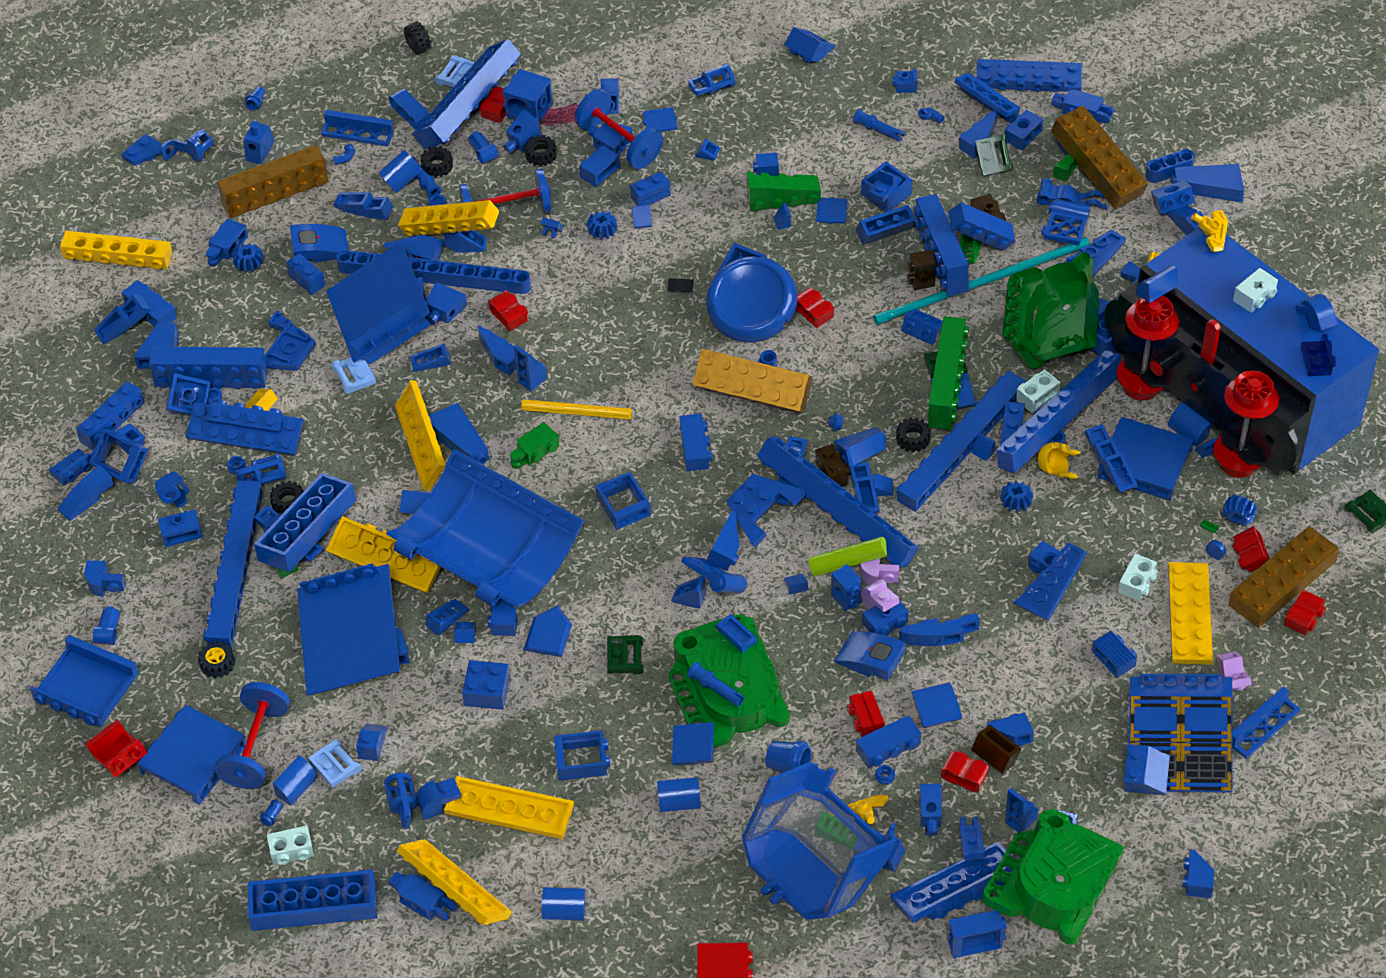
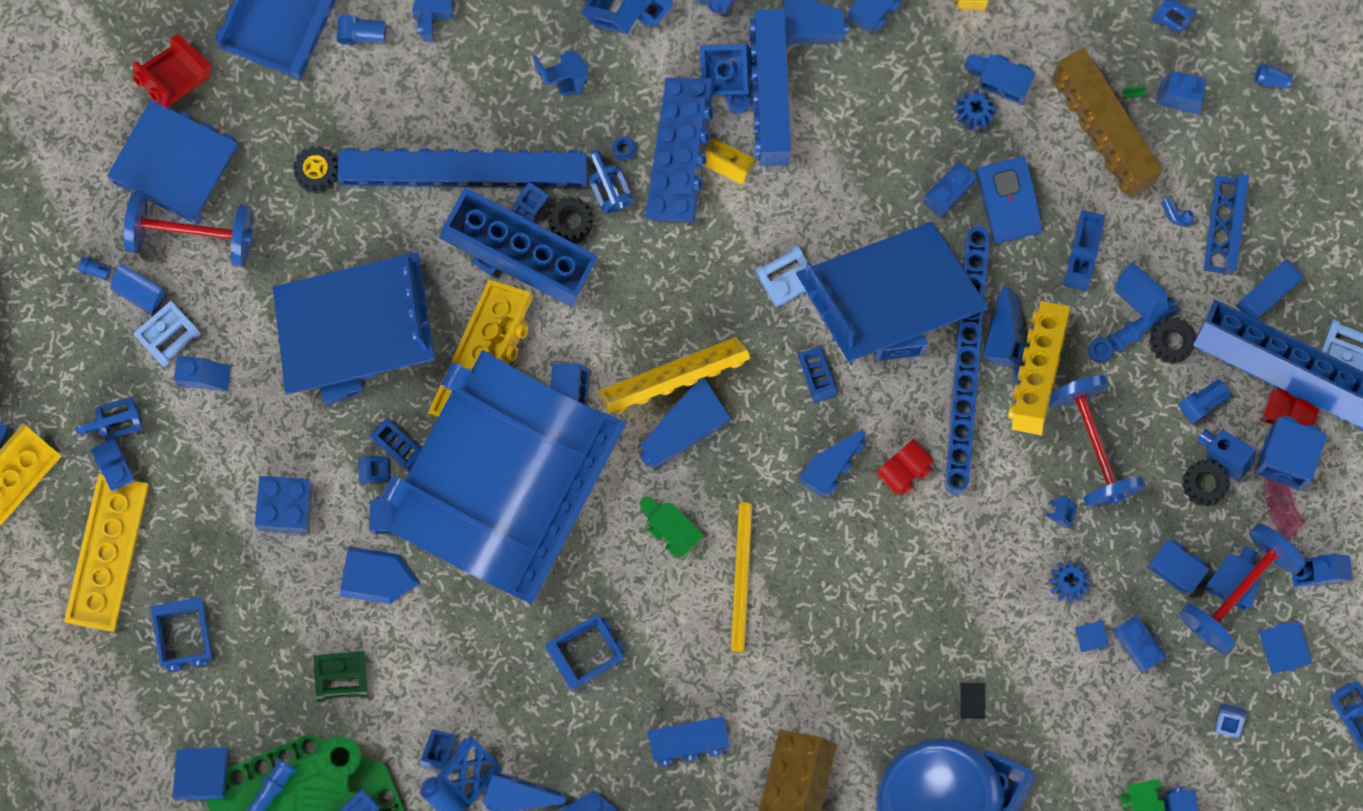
camera: 80 degrees right, 25 degrees up
(180, 528) = (515, 93): blue brick -> none
(289, 841) = (50, 295): light aqua brick -> none
(290, 347) = (821, 187): blue wing -> none
(444, 303) = (909, 379): blue torso -> none
(529, 370) = (793, 508): blue slope -> none
(678, 794) = (128, 761): blue brick -> none

